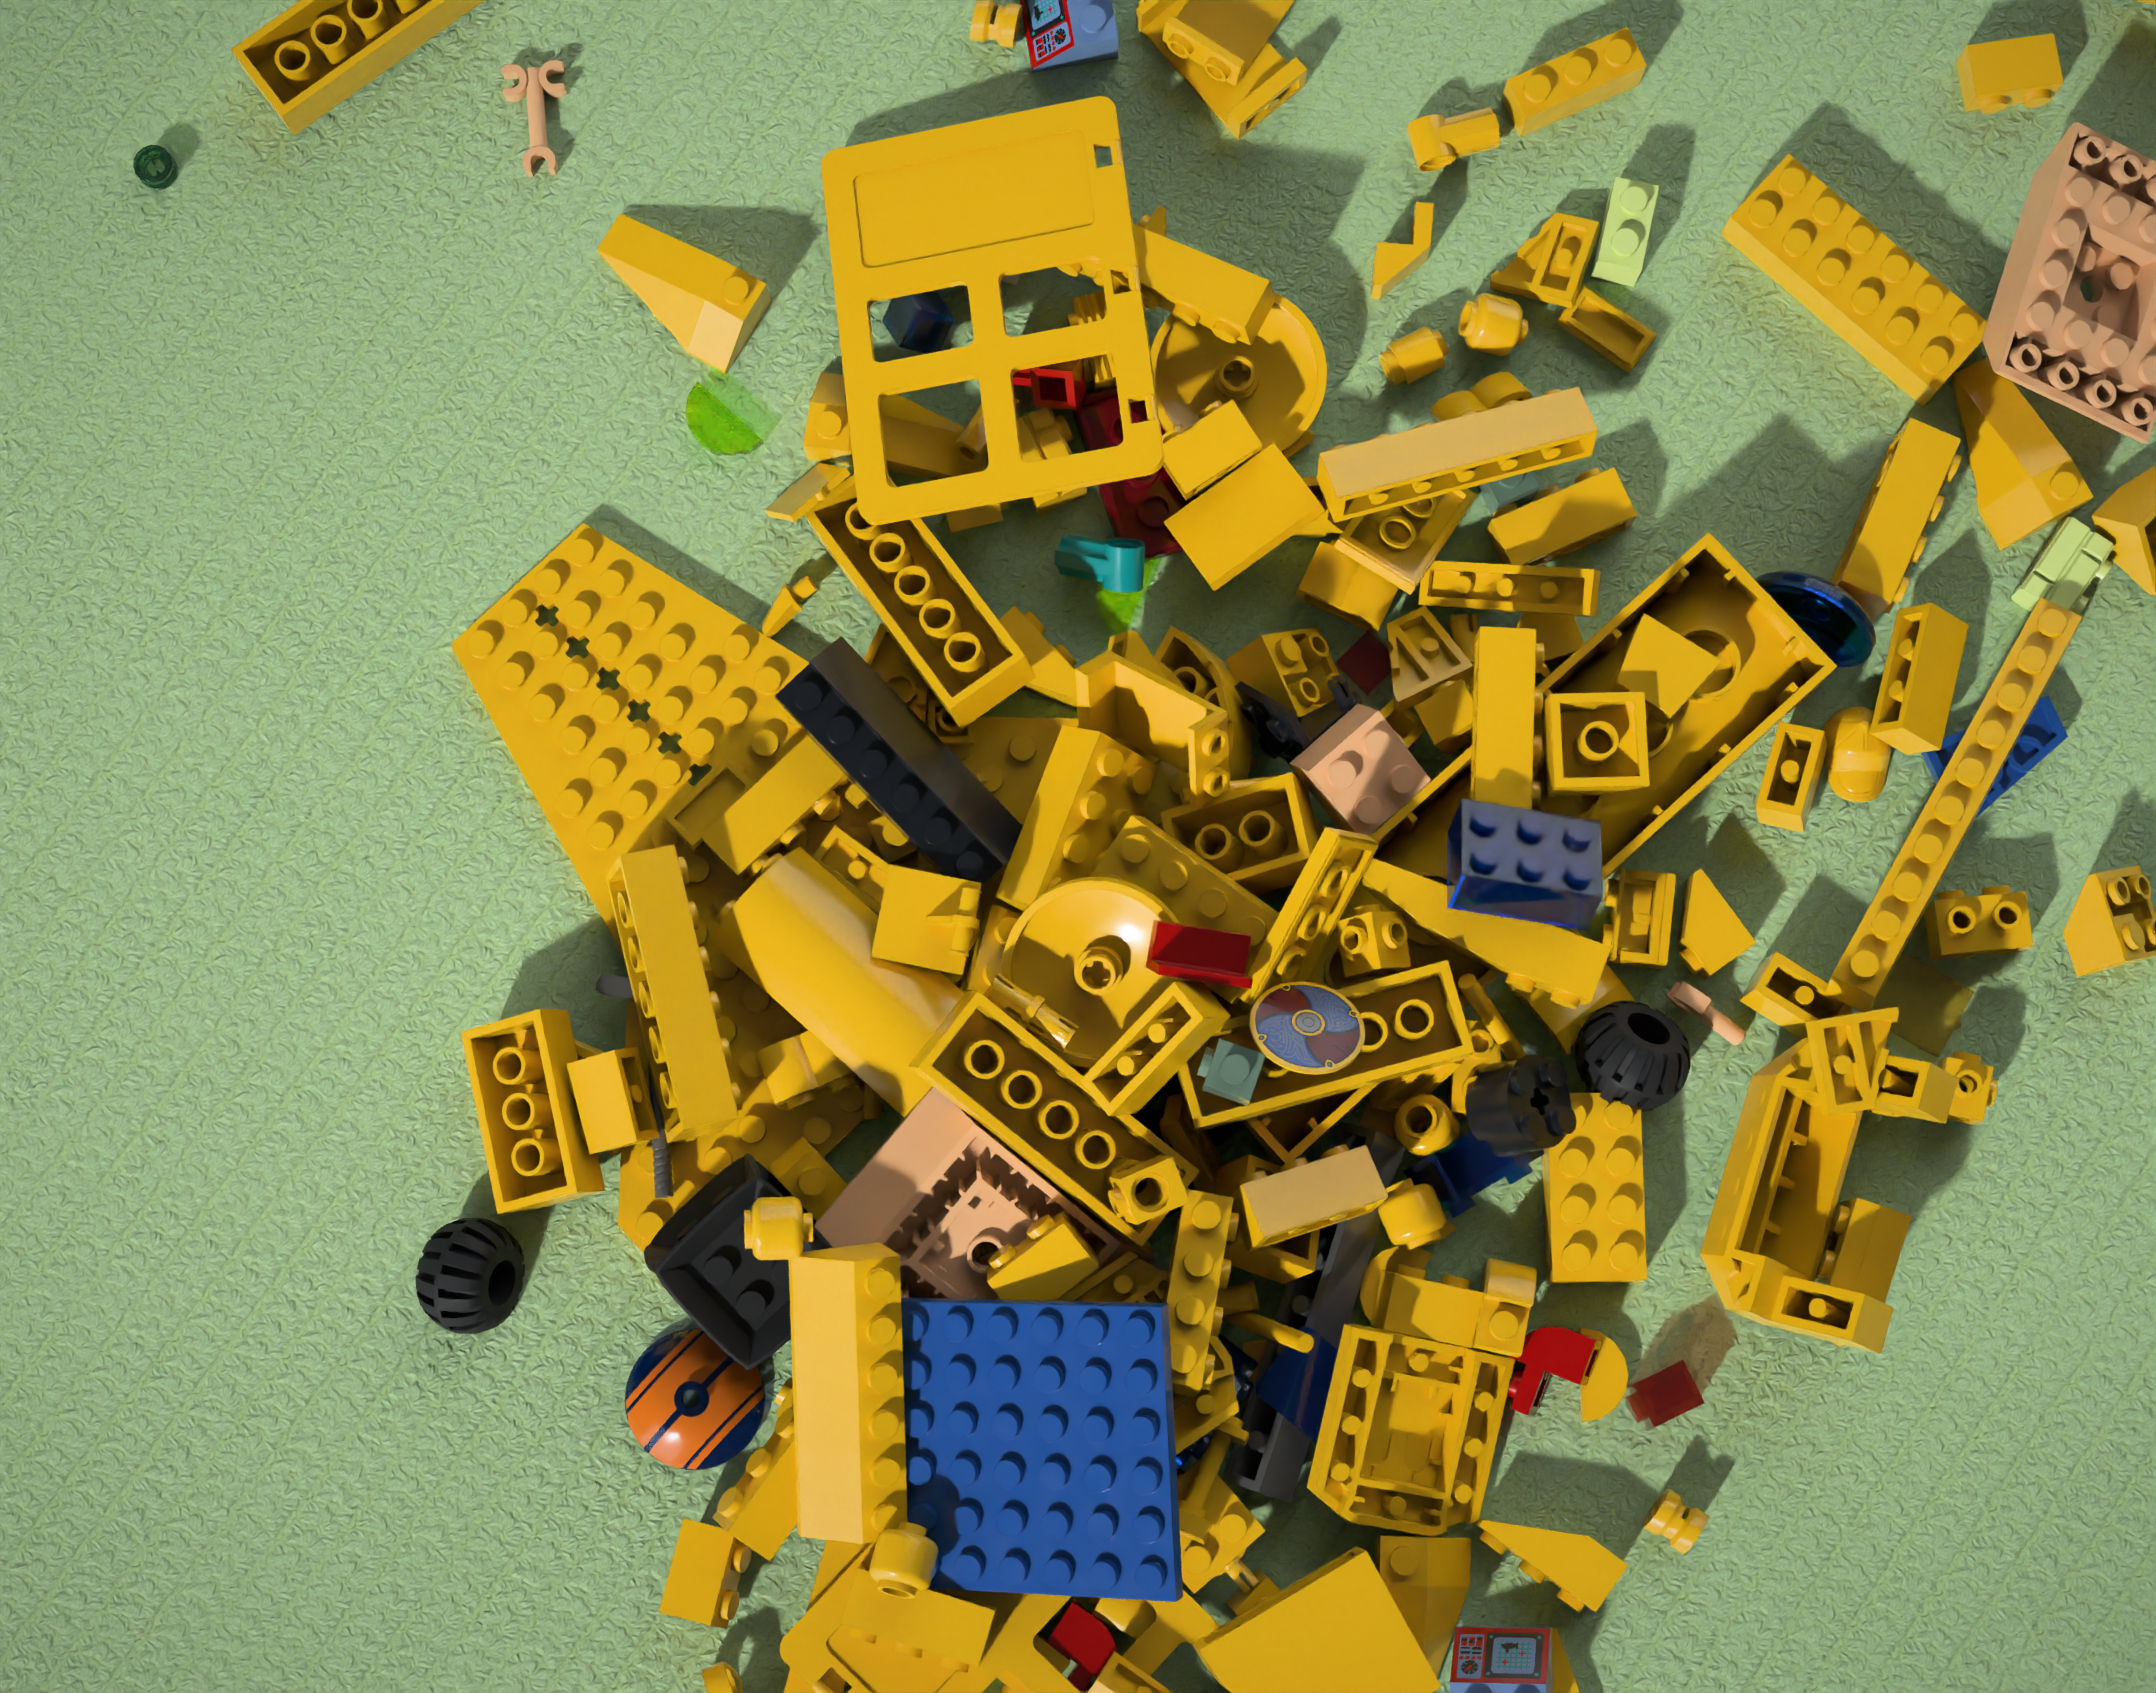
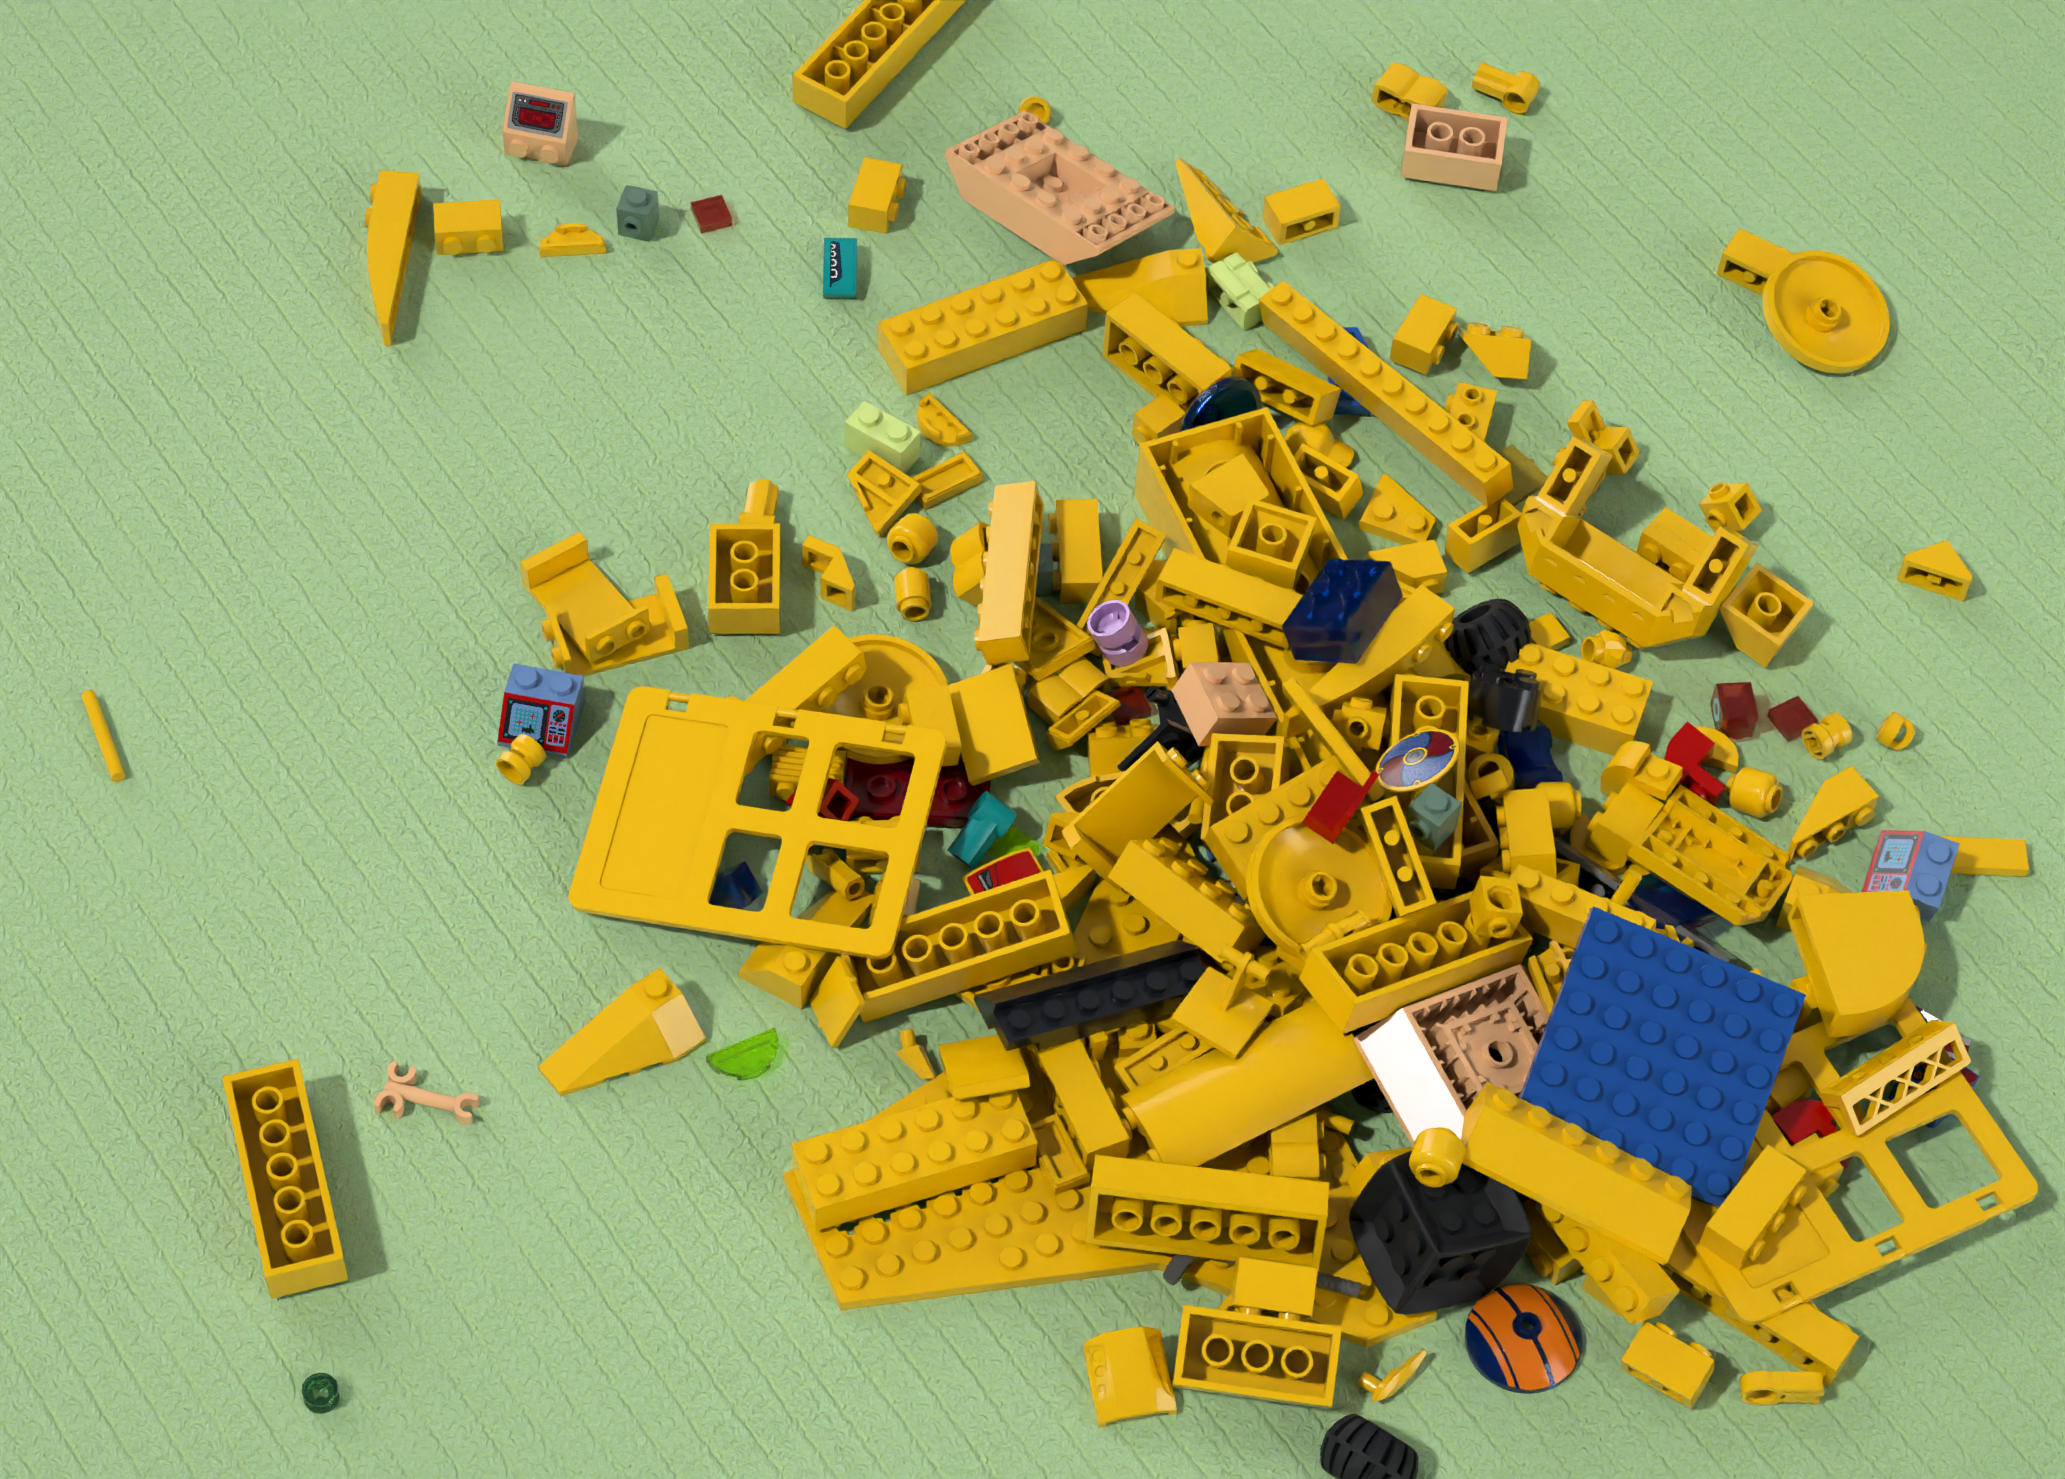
camera: 75 degrees left, 25 degrees down
(474, 982) = (1128, 1375): none -> yellow slope
(585, 1272) = (1393, 1381): none -> yellow bar
(637, 649) = (912, 1156): none -> yellow brick
(750, 674) = (982, 1067): none -> yellow tile
(903, 1560) = (1714, 1180): yellow head -> none
(1042, 1264) = (1520, 1008): yellow brick -> none
(1062, 612) = (1003, 871): none -> red slope
(1309, 618) = (1081, 720): none -> yellow slope
(1344, 157) = (744, 579): none -> yellow brick
(1377, 1124) = (1489, 785): none -> yellow piece
(1434, 612) = (1117, 633): none -> lavender wheel
(1548, 1453) = (1754, 792): none -> yellow head
(1573, 82) = (756, 429): yellow brick -> none
(1686, 1208) = (1606, 649): none -> yellow rock
(1687, 1125) = (1548, 632): none -> yellow tile
(1689, 289) = (939, 424): none -> yellow tile
(1691, 1470) = (1791, 718): none -> clear red tile
(1696, 1003) = (1462, 592): light nougat bar -> none
(1721, 1599) = (1890, 729): none -> yellow tile
(1794, 885) = (1396, 515): none -> yellow wing
(1799, 545) = (1157, 419): none -> yellow brick
(1820, 1389) = (1763, 614): none -> yellow slope
(1849, 1057) = (1550, 486): yellow wing -> none
(1876, 76) = (840, 268): none -> teal slope
(1981, 1298) = (1730, 506): none -> yellow brick
(2004, 1595) = (1936, 570): none -> yellow slope
(2016, 1115) = (1617, 441): none -> yellow brick
(2092, 824) = (1423, 334): none -> yellow brick

